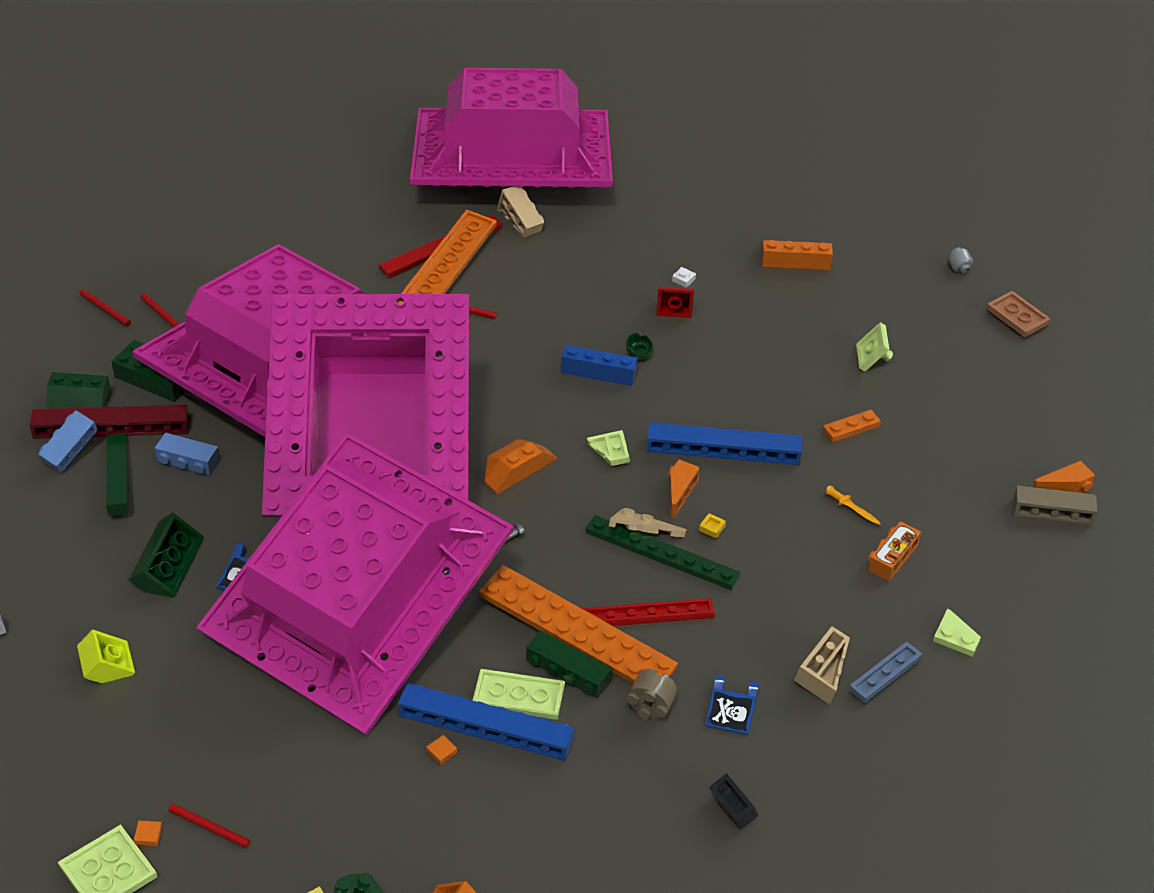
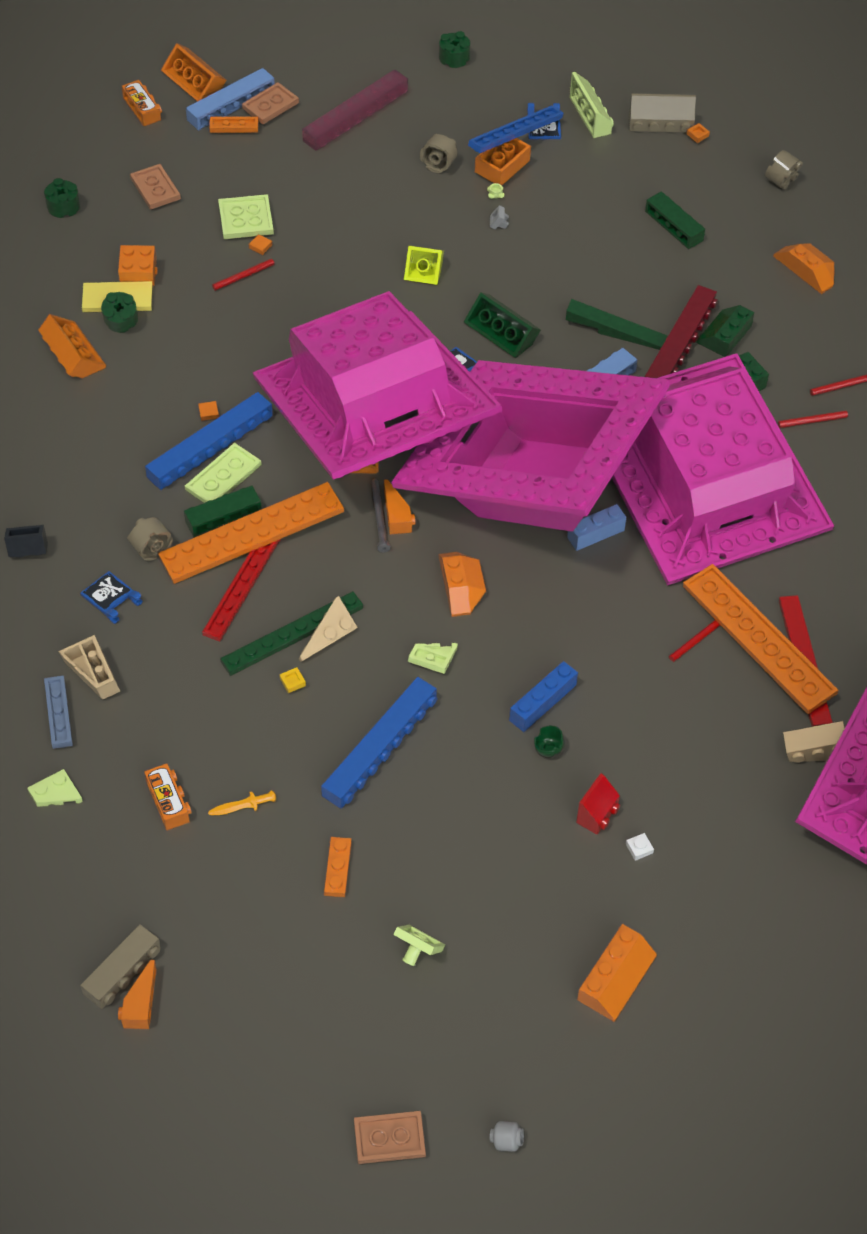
camera: 120 degrees right, 10 degrees up
(67, 441) = (663, 300): medium blue brick -> none
(682, 482) = (353, 680): orange slope -> none

